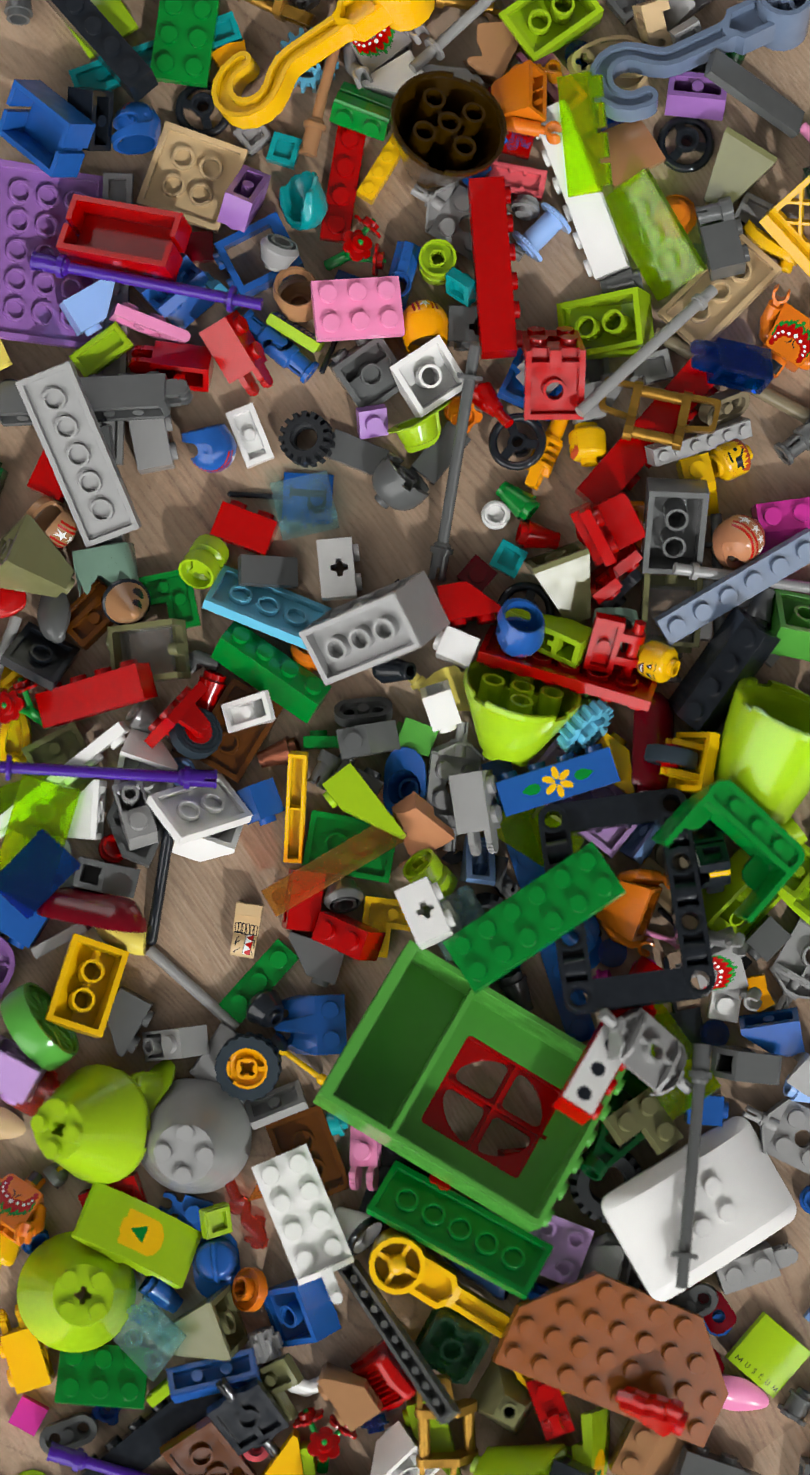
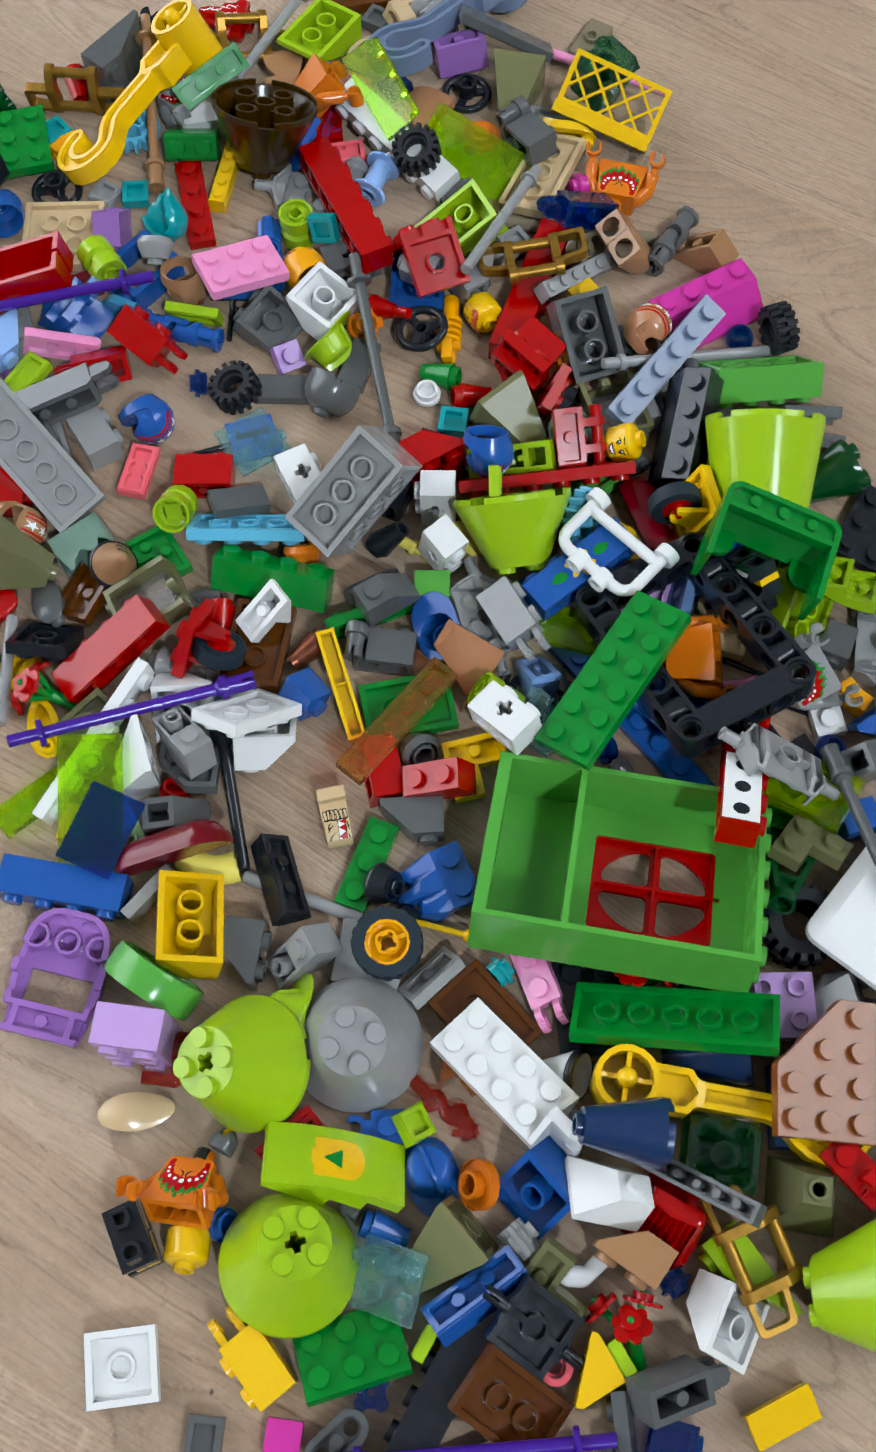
camera: 20 degrees left, 20 degrees down
(178, 967) = (280, 879): none -> black slope
(183, 496) = (138, 471): none -> coral plate
(218, 249) = (100, 258): none -> lime wheel
(249, 435) = (184, 403): white plate -> none
(273, 417) = (198, 383): none -> clear blue plate
(346, 1340) = (608, 1194): none -> white slope
(356, 798) = (402, 649): lime slope -> none
(358, 247) = (226, 223): red plant -> none
(377, 1313) = (629, 1130): none -> dark blue cone
(407, 46) = (210, 75): none -> plate
(507, 679) = (495, 480): none -> lime tile
(567, 808) = (602, 578): none -> white bar
(577, 217) = (416, 136): none -> black tyre
(731, 459) = (615, 280): yellow head -> none
(751, 321) = (578, 183): none -> dark pink plate
(774, 430) = (637, 261): none -> medium nougat piece

